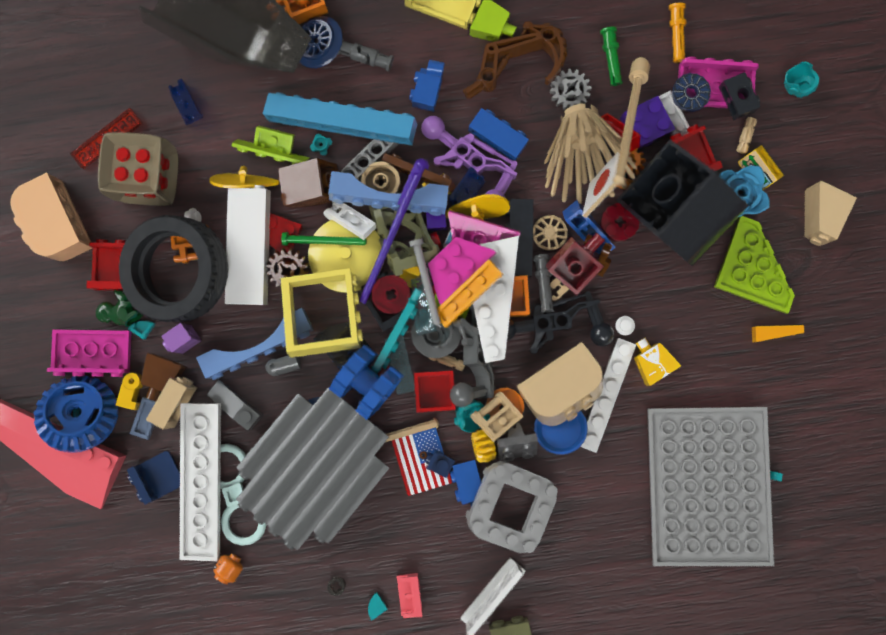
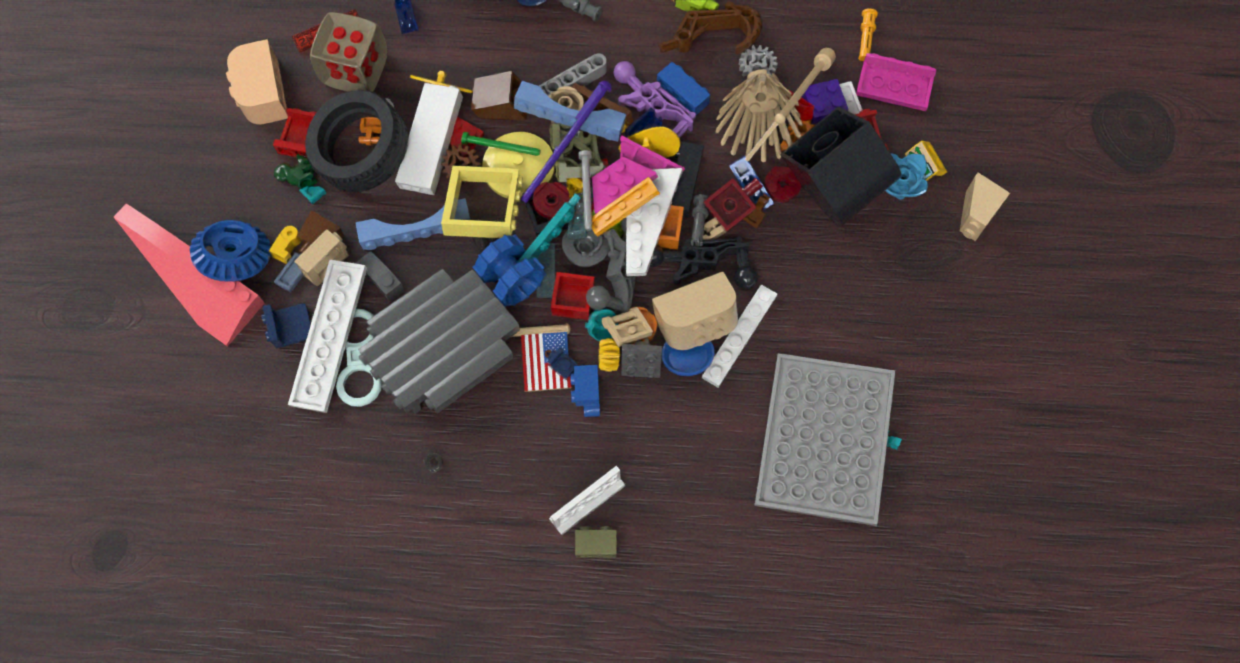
camera: 10 degrees right, 15 degrees down
(90, 352) = (259, 203): dark pink bracket -> none
(180, 338) = (345, 204): medium lavender brick -> none
(228, 568) = (332, 421): orange head -> none
(271, 143) = (474, 58): lime bracket -> none
(282, 365) = (435, 247): dark grey piece -> none
(321, 139) = (518, 64): teal plate -> none
(340, 118) = (542, 47): dark azure brick -> none
(350, 219) = (529, 131): white plate -> none
(376, 606) = (467, 490): teal tile -> none
(410, 595) = (504, 484): coral hinge -> none
(427, 86) = (627, 37): blue hinge -> none
(435, 223) = (609, 149): dark purple brick -> none
(451, 362) = (588, 271): tan axle -> none
(516, 540) = (608, 439): light grey plate -> none
(550, 232) = (713, 181): tan wheel -> none
(610, 47) = (802, 37): green pin -> none
(625, 325) = (769, 275): white plate -> none
(654, 362) = (792, 312): yellow torso -> none
(698, 84) = (873, 75): tile -> none
(739, 107) = (913, 102): black brick -> none
(746, 135) = (917, 131): tan axle -> none
(752, 270) = (903, 248): lime plate -> none
(762, 333) = (907, 307): light orange piece -> none
(801, 80) = (975, 92): teal cap -> none

